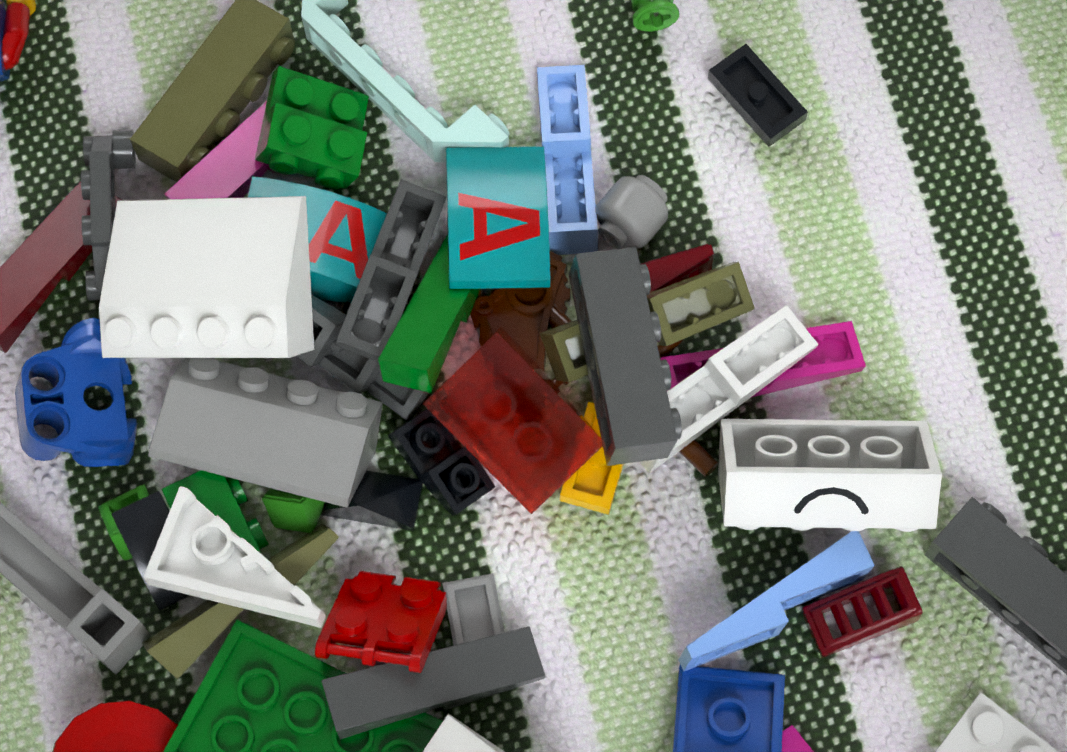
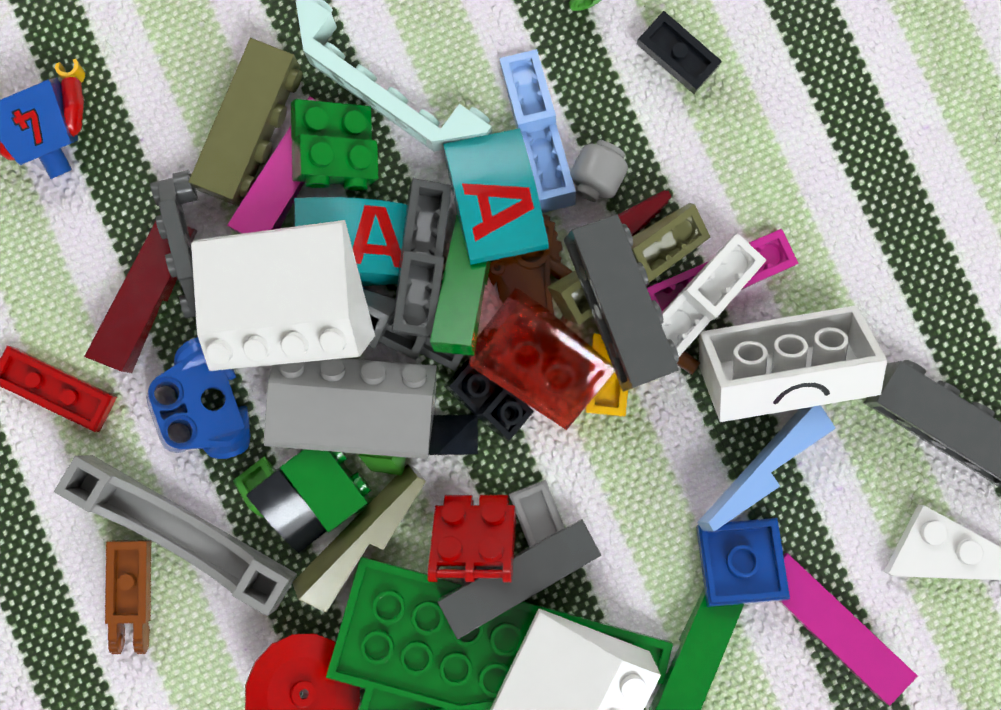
camera: 15 degrees left, 15 degrees up
(209, 561) = (333, 523): white wing -> none
(874, 587) = (849, 462): dark red slope -> none

